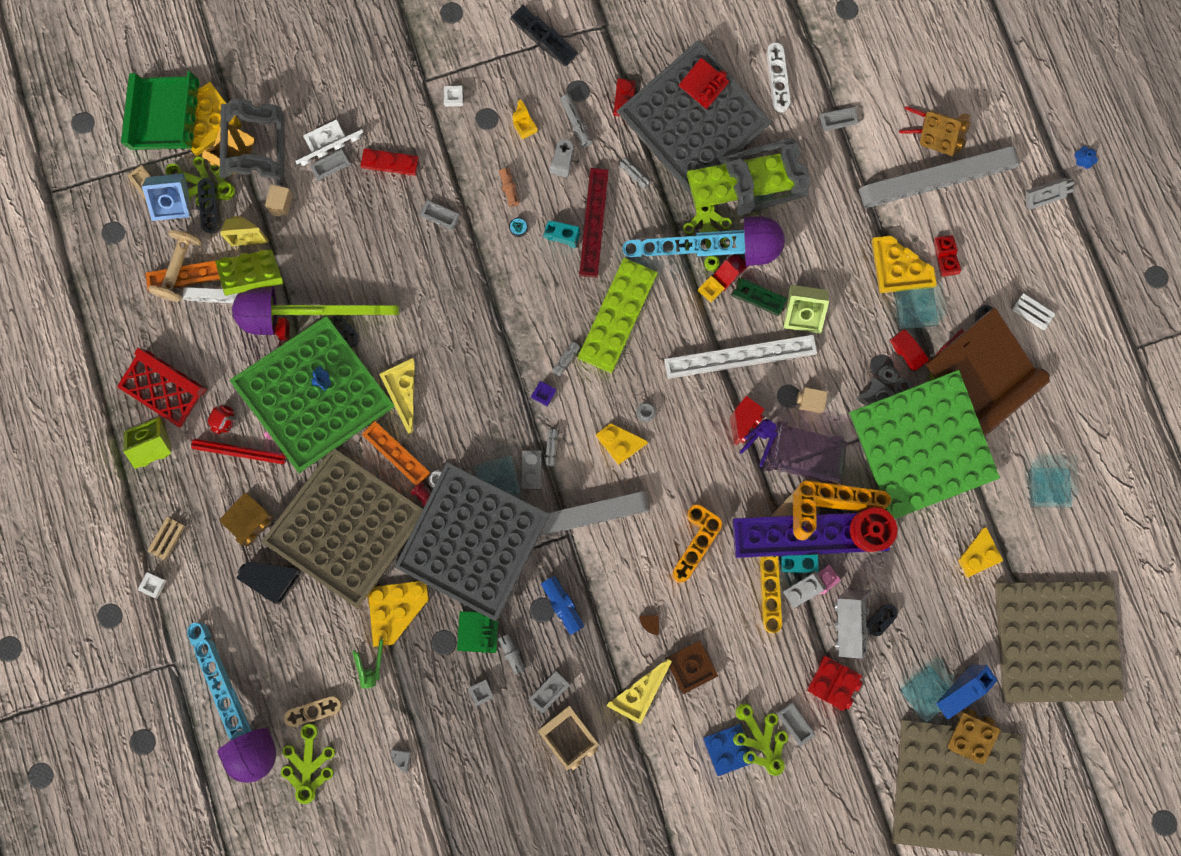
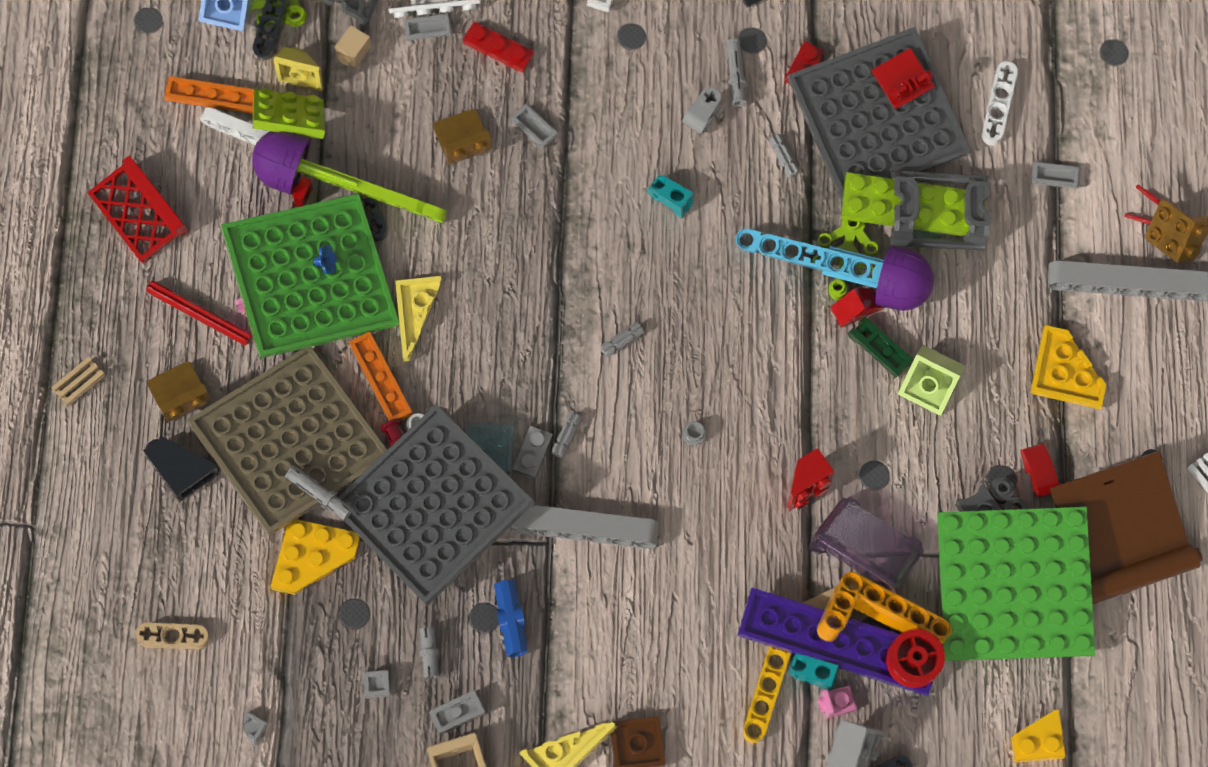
camera: 20 degrees right, 10 degrees down
(146, 443) = (97, 266): lime slope -> none
(152, 585) = (42, 427): white plate -> none
(175, 265) = (226, 50): tan hose -> none
(221, 419) = (193, 269): red head -> none
(249, 753) = (81, 647): piece -> none
(307, 767) = (141, 696): lime plant -> none
(367, 676) = (250, 618): bright green plant -> none
(388, 242) = (462, 136): none -> pearl gold bracket
(390, 565) = (317, 491): none -> light grey pin
(476, 633) = (398, 615): green hinge -> none
(509, 187) = (628, 122): nougat pin -> none
(518, 227) = (622, 171): tile -> none
(522, 121) = (673, 54): yellow slope -> none
(543, 394) = (579, 370): dark purple plate -> none
(593, 223) = (713, 195): dark red plate -> none
(617, 315) = (702, 311): lime plate -> none
(620, 443) = (649, 458): yellow wing -> none
(650, 624) = (607, 678): reddish brown tile -> none
(694, 547) = (692, 607): light orange beam -> none
(711, 289) = (825, 318): yellow plate -> none
(740, 356) = (832, 408): white plate -> none
(765, 430) = (828, 498): dark purple plant -> none
(804, 590) = (807, 702): light grey plate -> none
(812, 400) = (899, 487): tan brick -> none
(916, 308) = (1067, 425): clear light blue plate -> none
(946, 255) = (1129, 377): red slope -> none
(1050, 487) = (1155, 691): clear light blue plate -> none

